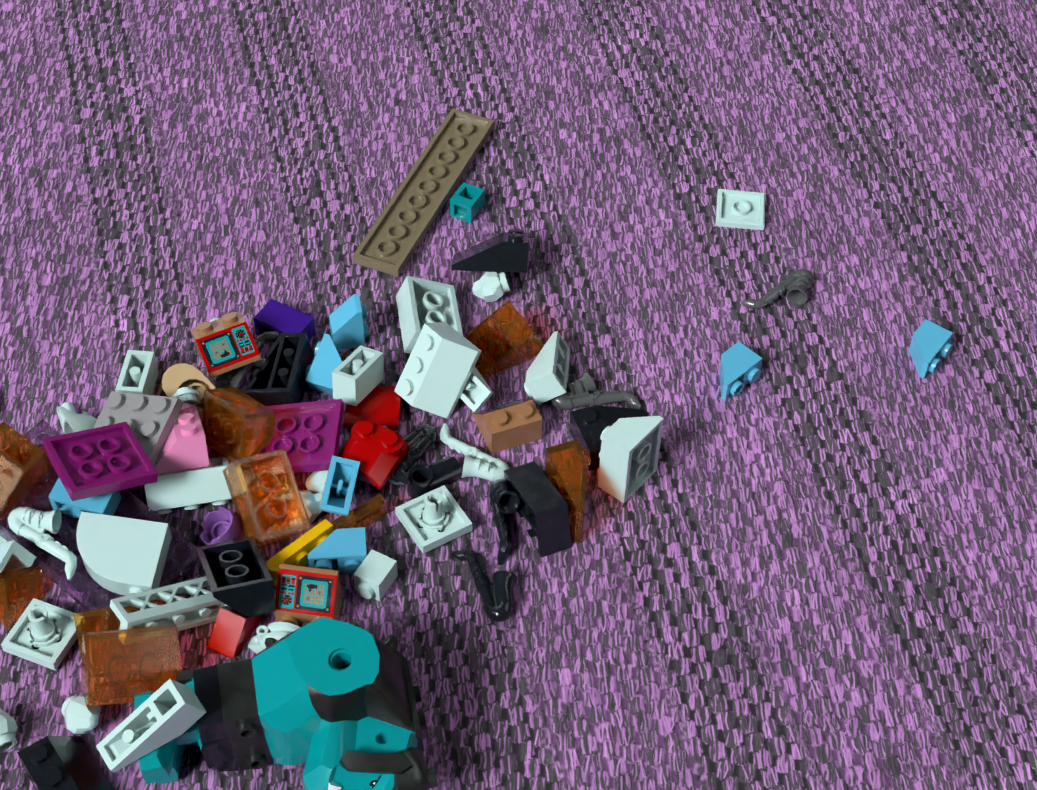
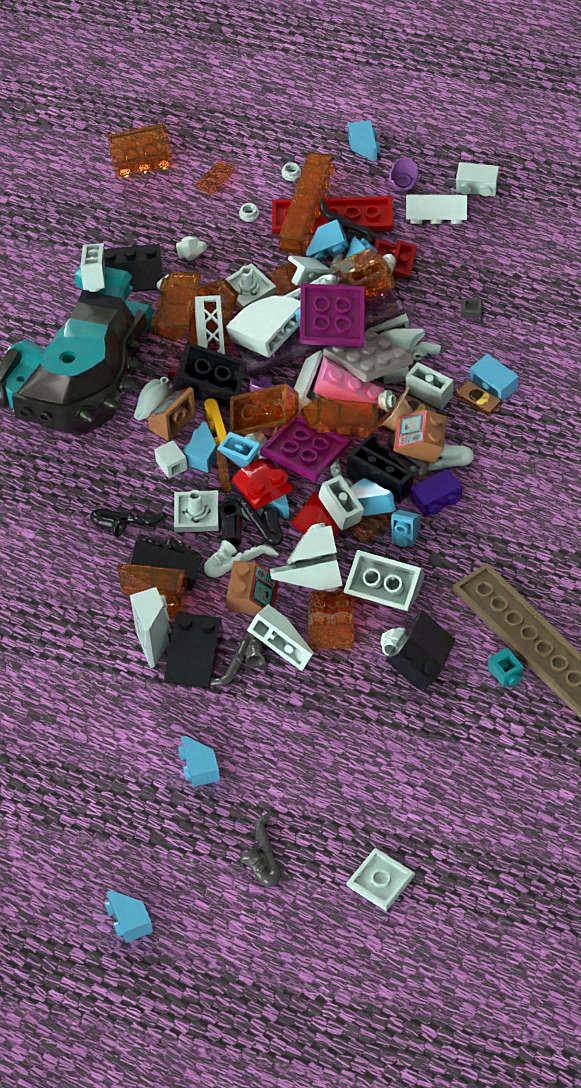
camera: 125 degrees right, 5 degrees up
(93, 339) = (494, 377): none -> medium azure brick
(126, 339) = (478, 398): none -> tile

